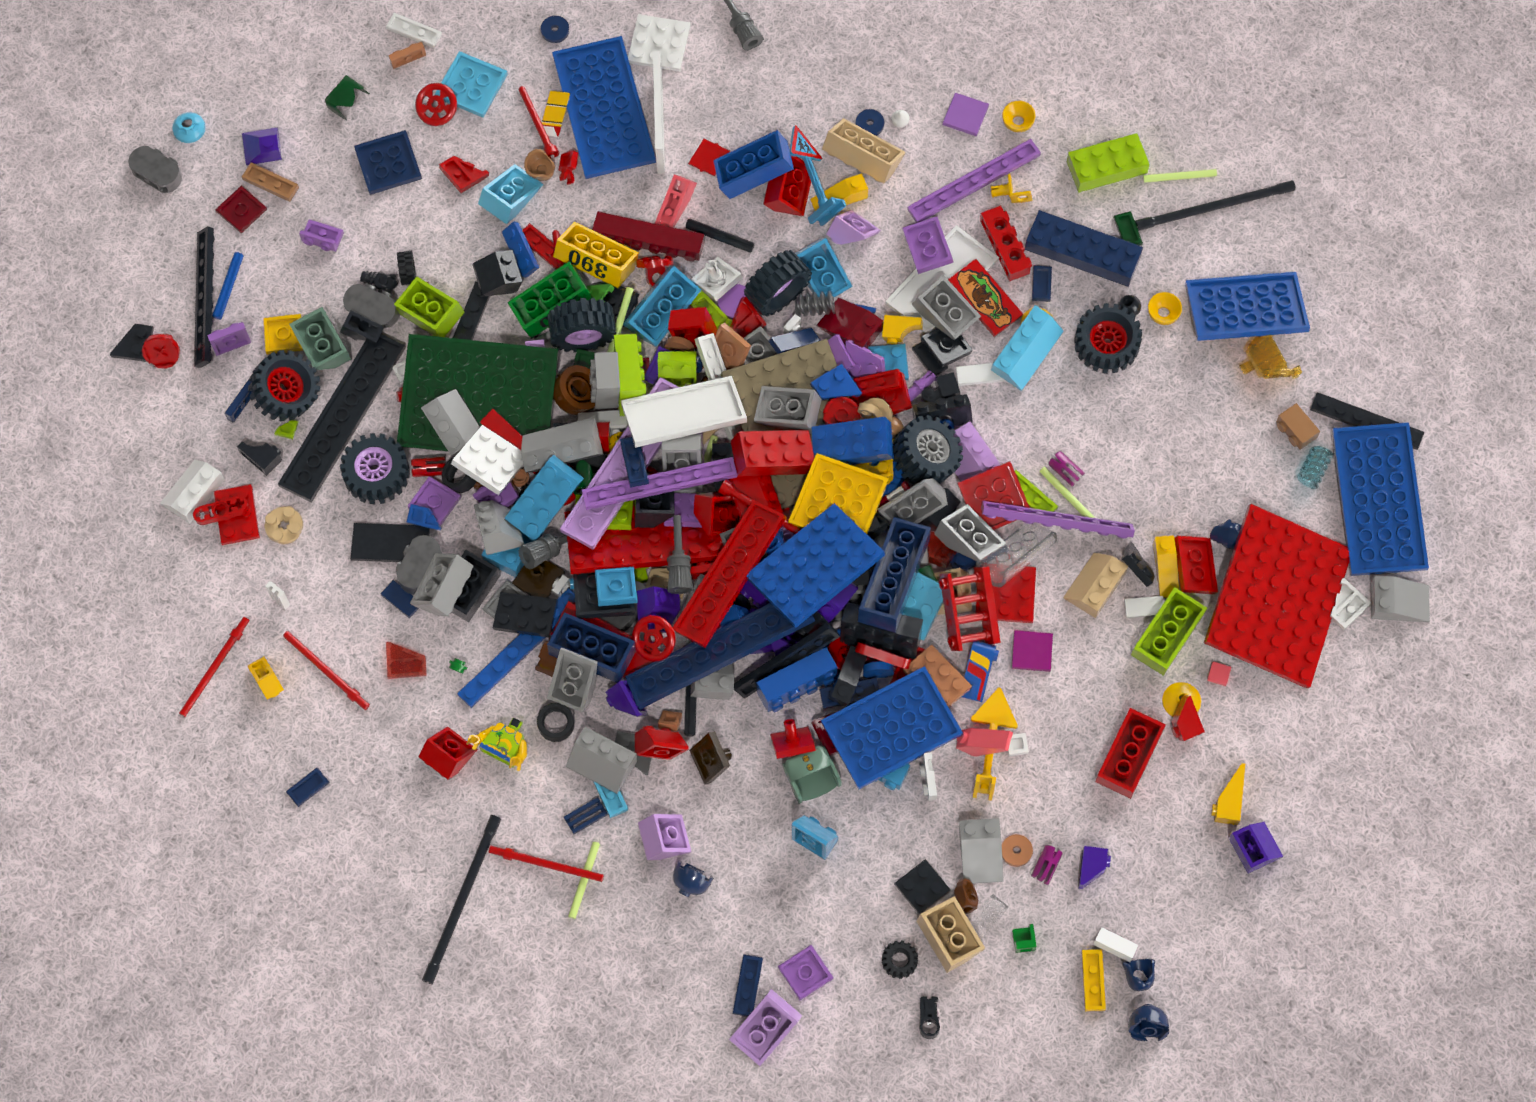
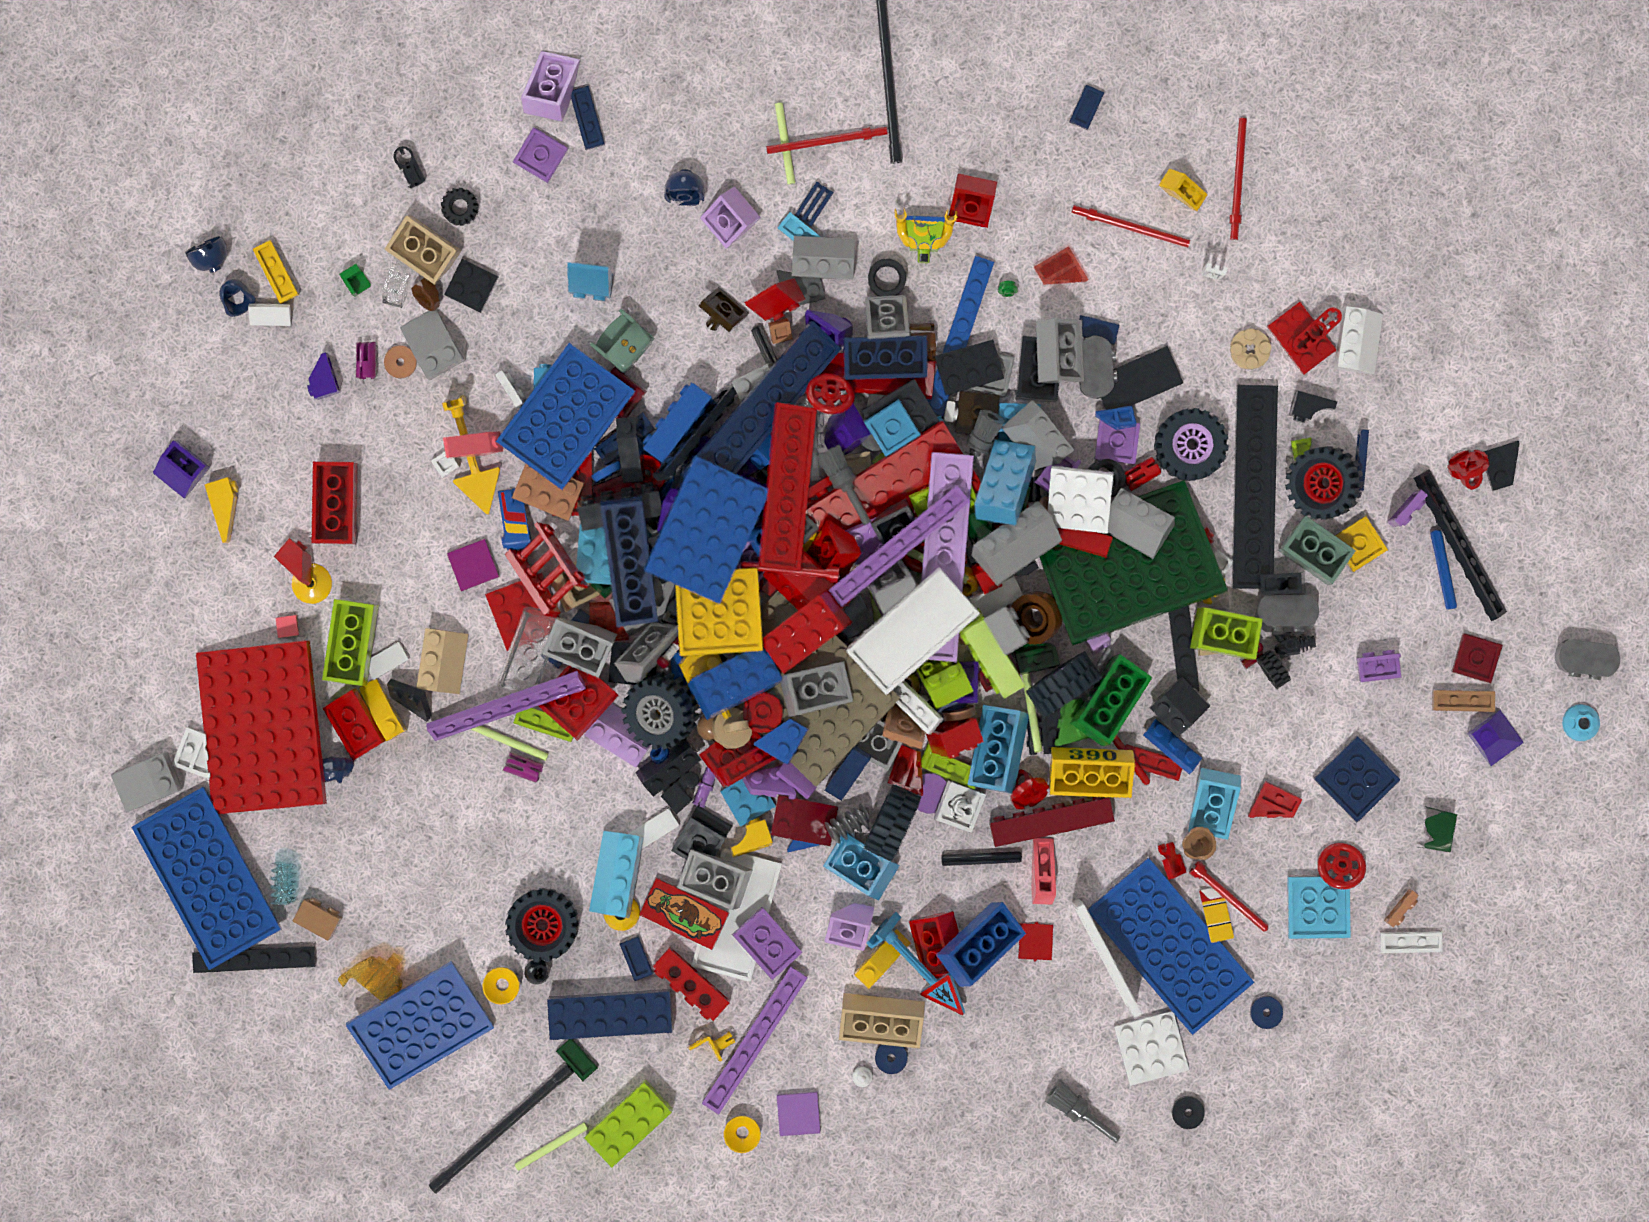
camera: 155 degrees right, 20 degrees up
(634, 463) = (933, 553): dark blue tile -> none
(792, 325) = (859, 791): white plate -> none
(792, 740) = (654, 362): red tile -> none
(883, 655) = (606, 483): red beam -> none

